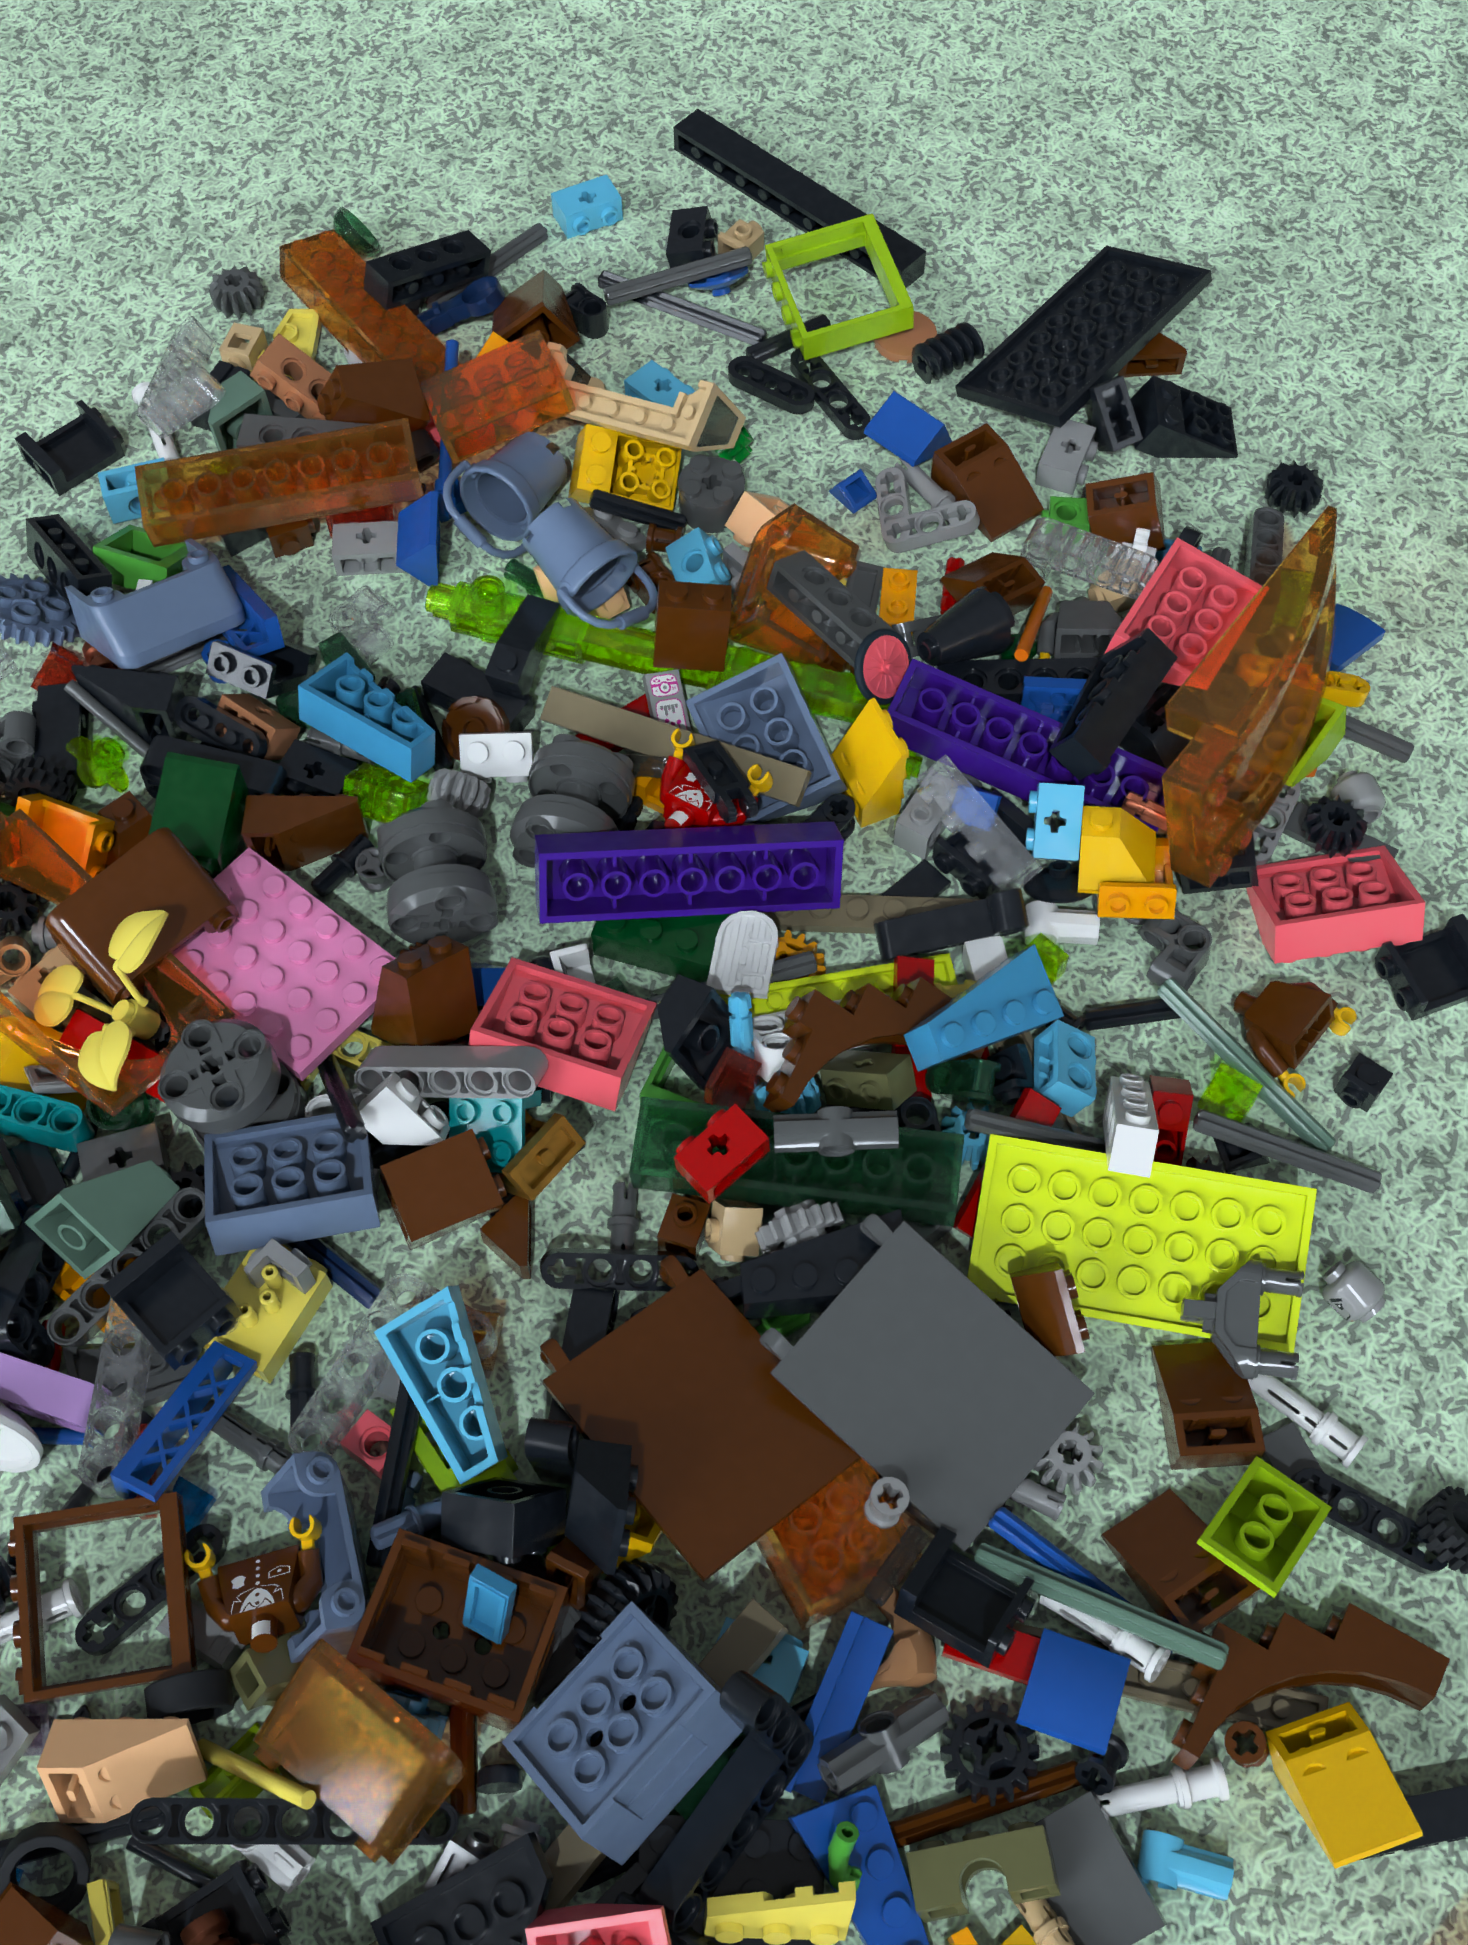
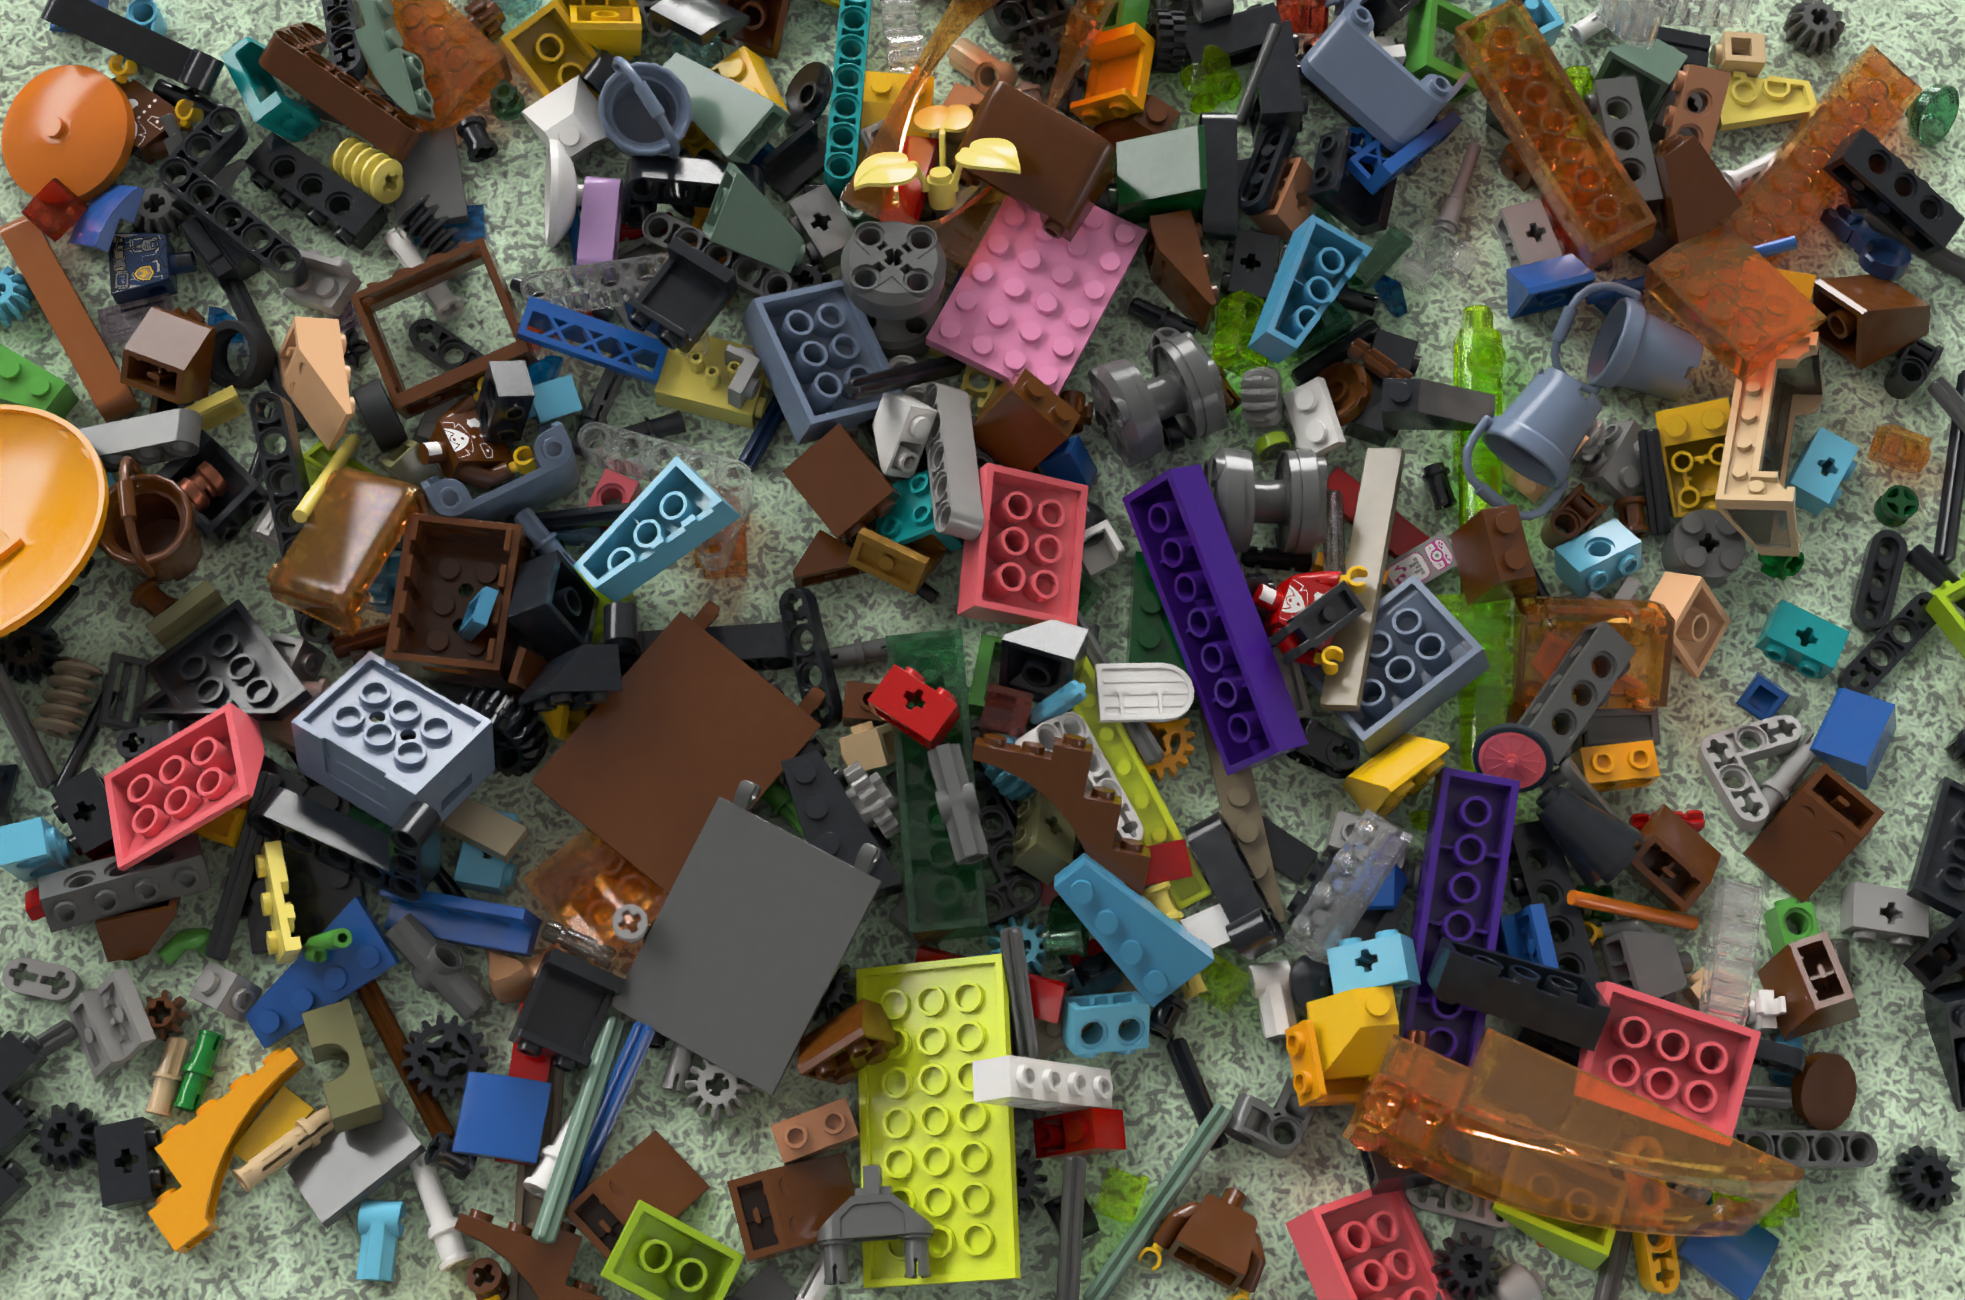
camera: 70 degrees right, 10 degrees up
(230, 1531) = (505, 401): none -> black brick
(238, 1484) = (555, 399): none -> medium azure brick
(305, 596) = (1455, 201): none -> light grey pin
(387, 666) = (1392, 295): none -> tile
(458, 685) = (1376, 361): none -> reddish brown axle
(508, 800) = (1271, 444): none -> lime tile
(589, 677) = (1439, 485): none -> black pin
(657, 338) = (1891, 438): none -> clear orange brick
(707, 355) = (1902, 499): none -> dark green wheel
(811, 448) = (1820, 640): none -> teal brick
(1131, 1367) = (815, 1132): none -> nougat brick
(1215, 532) = (1824, 1091): none -> reddish brown tile

